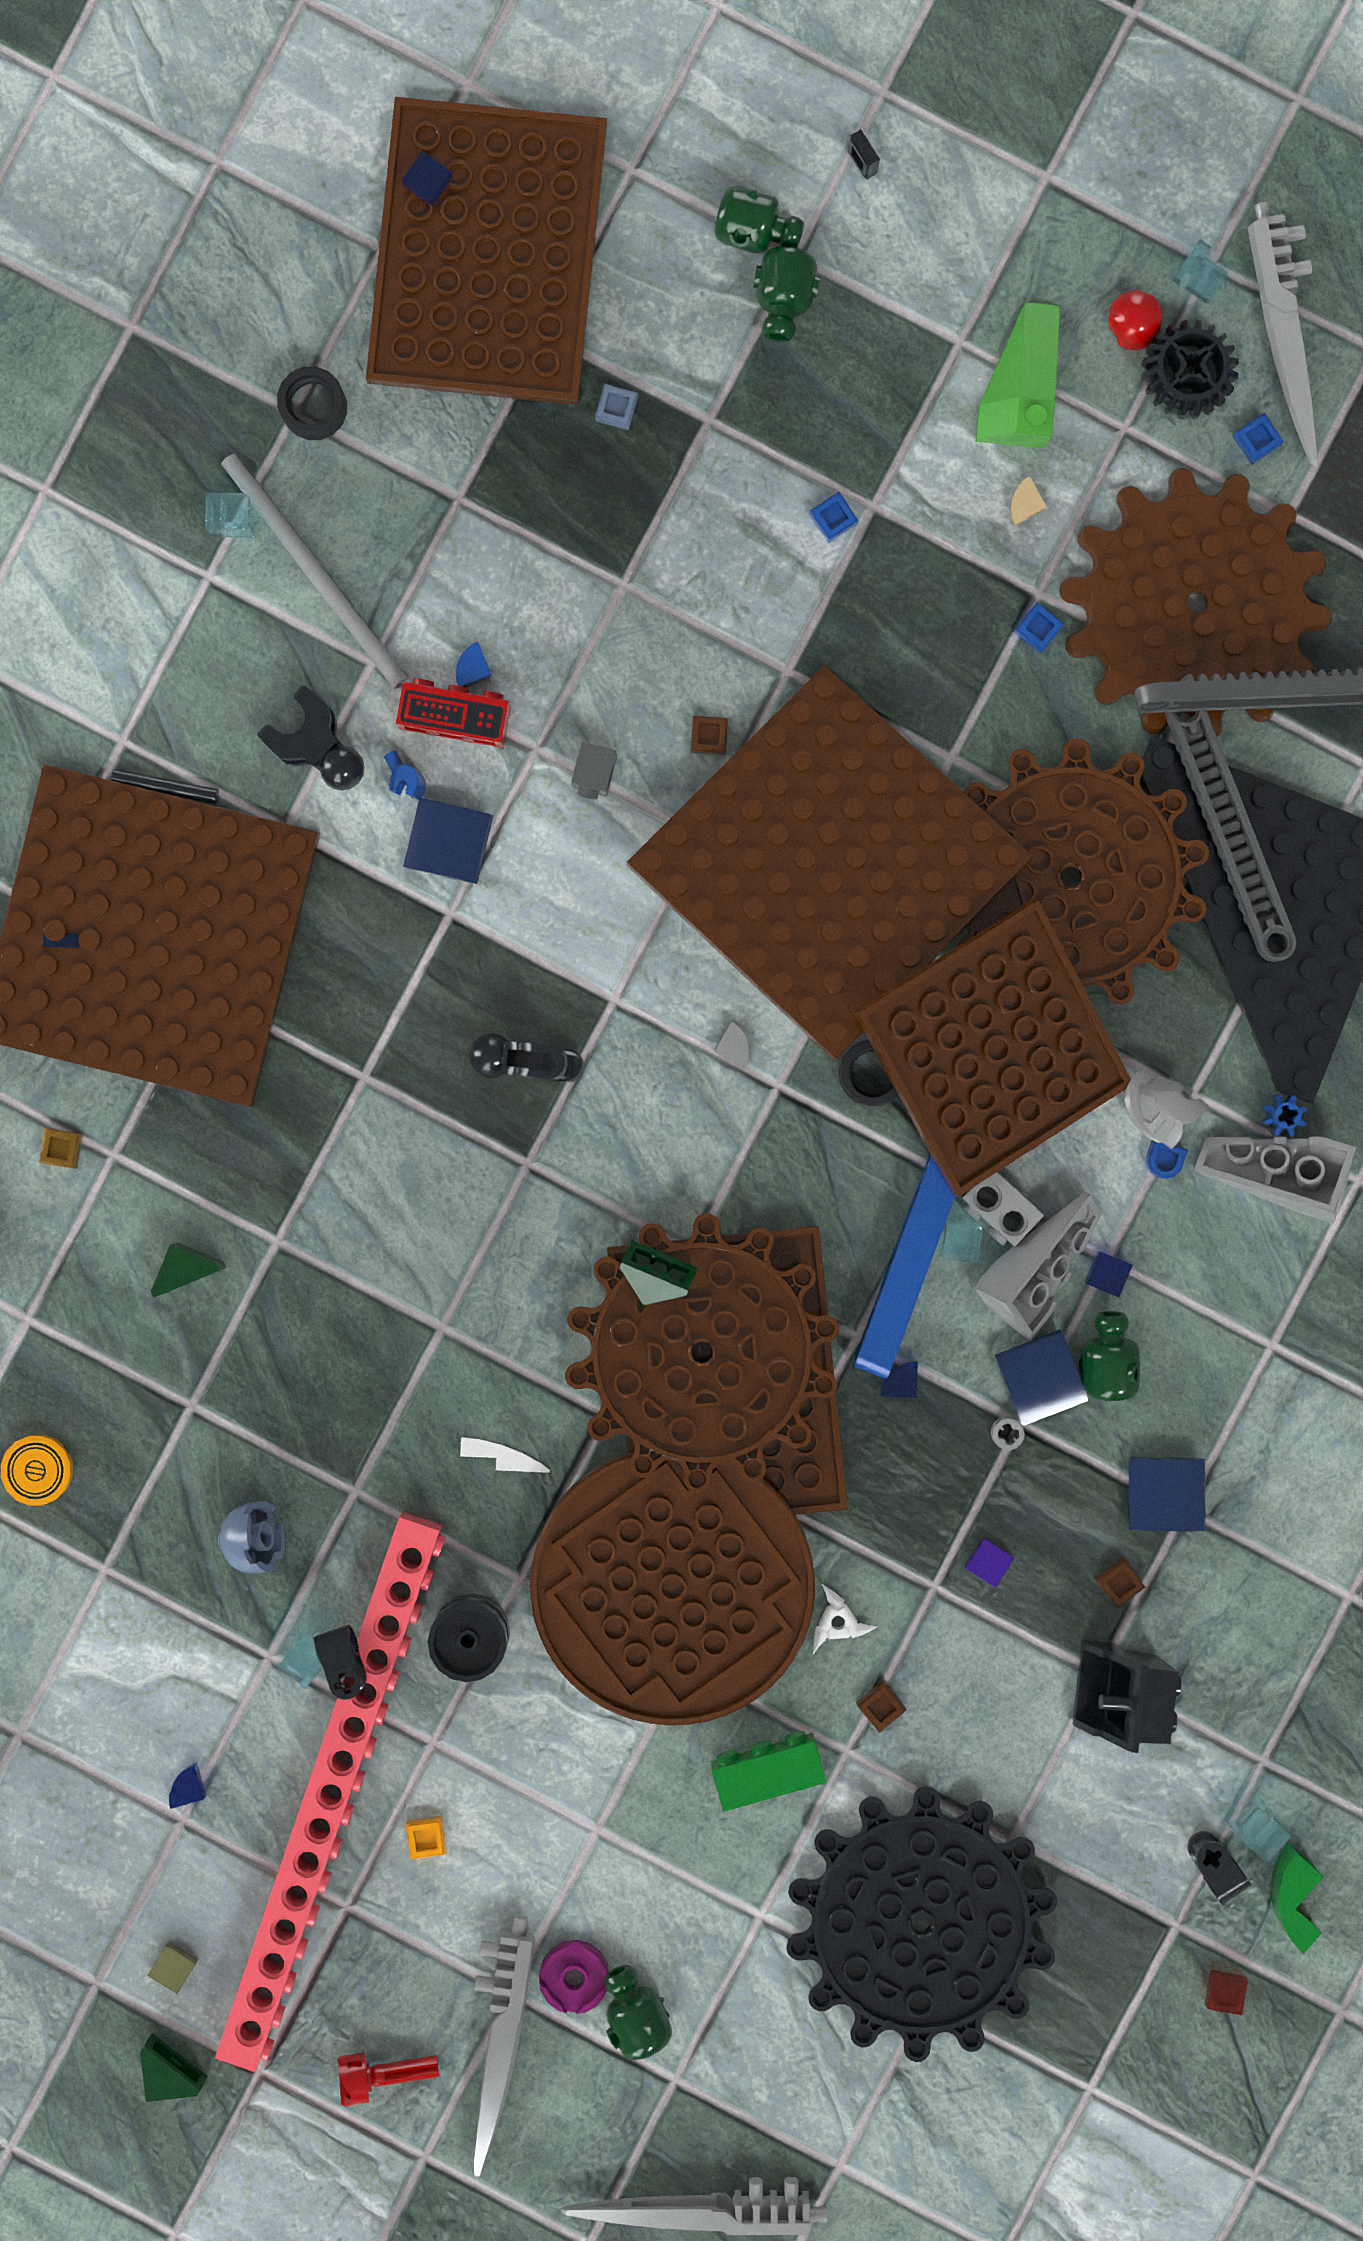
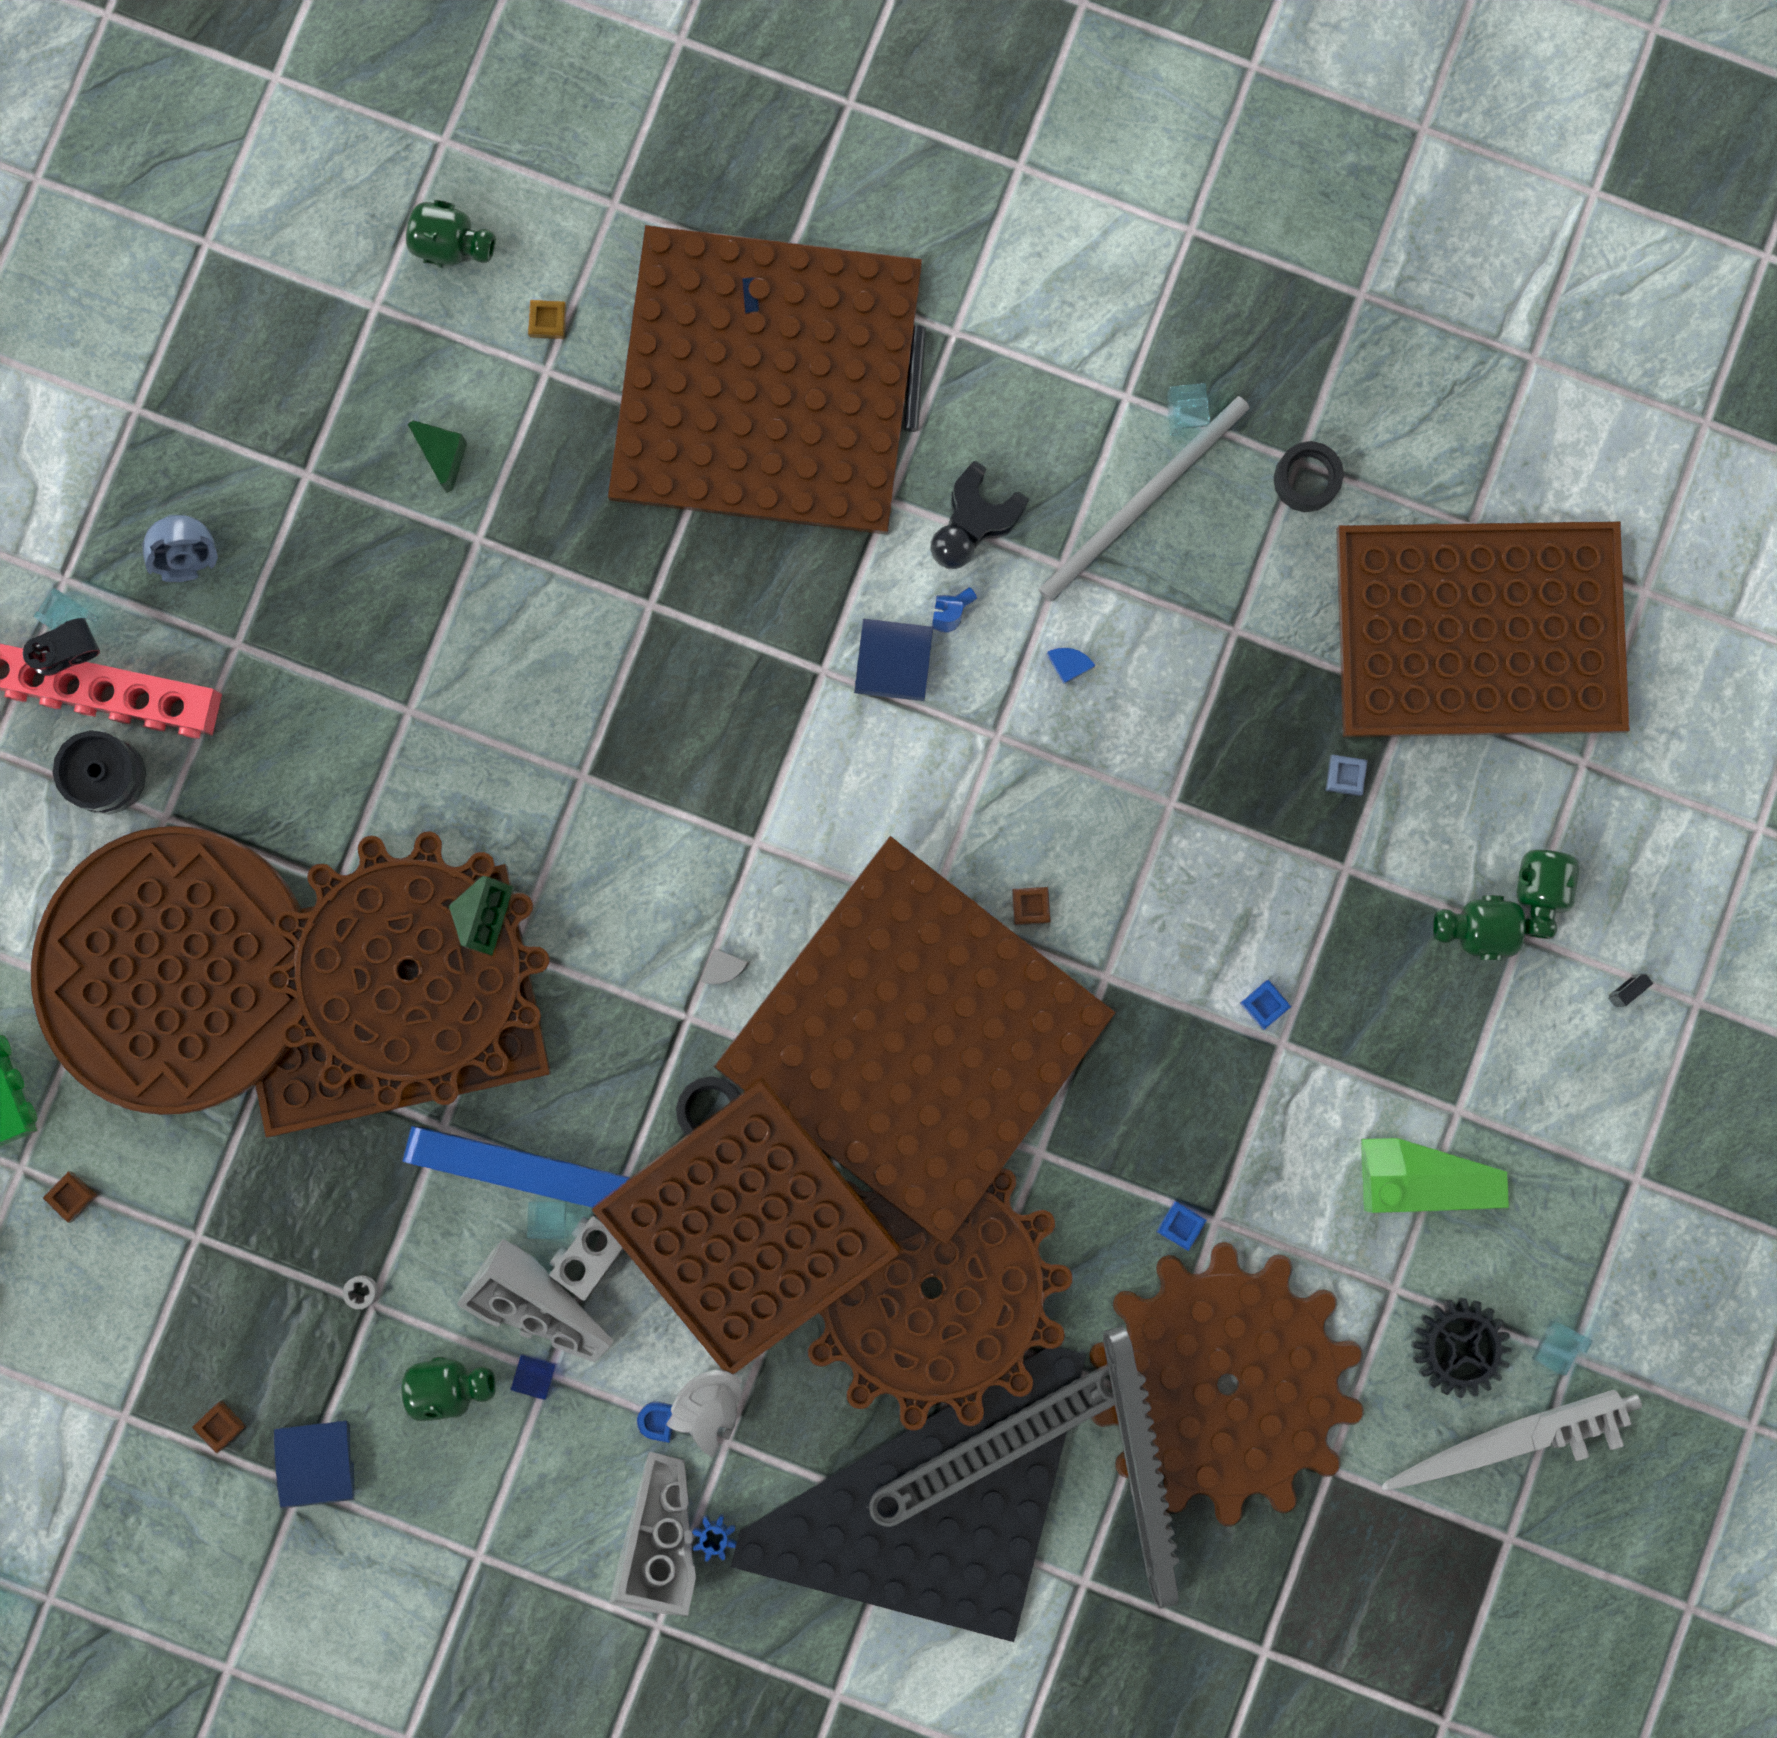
camera: 75 degrees right, 5 degrees down
(36, 1470) = (227, 332): light orange tile -> none
(427, 178) = (1543, 561): clear blue tile -> none
(453, 713) = (1020, 650): brick -> none
(494, 1056) = (684, 730): black piece -> none
(506, 1458) = (285, 790): white sticker -> none
(593, 770) = (980, 794): dark grey brick -> none
(827, 1630) = (165, 1141): white piece -> none
(901, 1381) = (402, 1177): clear blue tile -> none
(989, 1562) = (226, 1289): dark purple tile -> none
(1026, 502) = (1305, 1197): tan tile -> none
(1041, 1377) = (420, 1319): dark blue slope -> none
(1125, 1696) = (101, 1445): black piece -> none
(1135, 319) = (1505, 1286): red hair -> none
(1258, 438) = (1402, 1427): blue tile -> none

